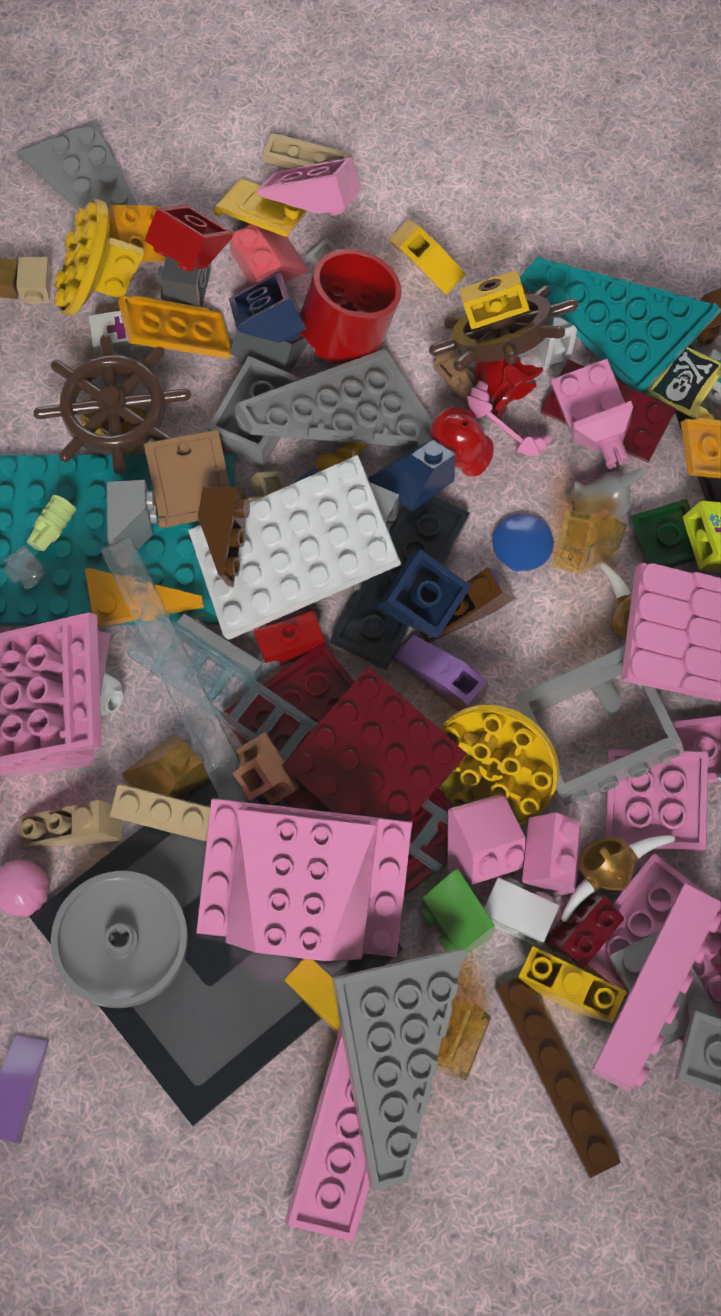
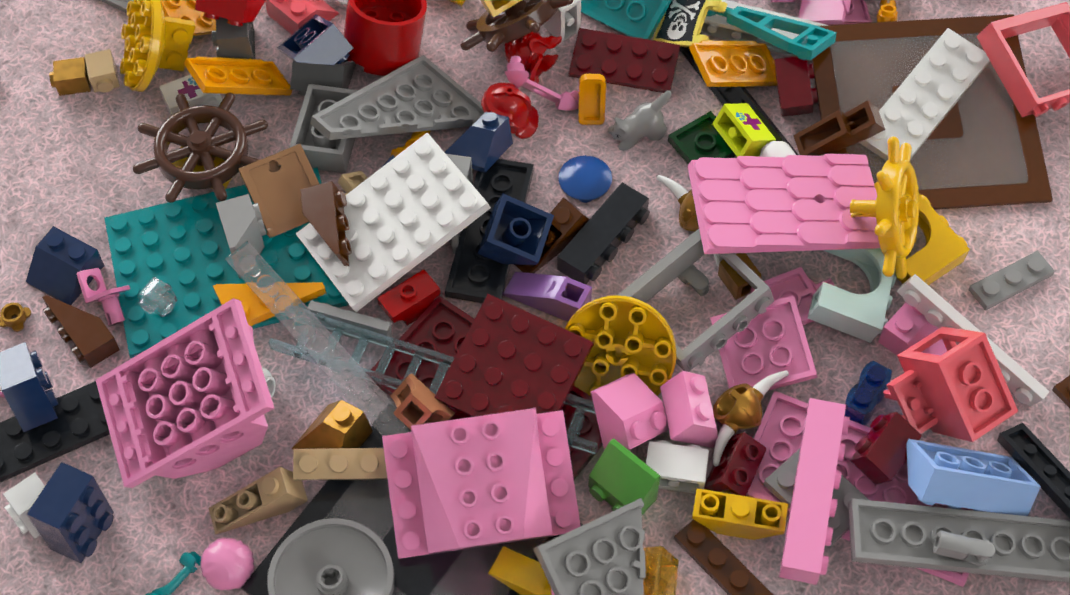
camera: 15 degrees left, 10 degrees down
(51, 522) = (172, 255): yellowish green hinge -> none
(459, 381) = (488, 62): medium nougat hinge -> none
(522, 617) = (603, 234): none -> black brick
(556, 452) = (592, 99): none -> light orange piece
(586, 541) = (640, 159): clear yellow slope -> none
(595, 410) = (614, 55): bright pink plate -> none
(647, 712) = (733, 281): none -> pearl gold brick

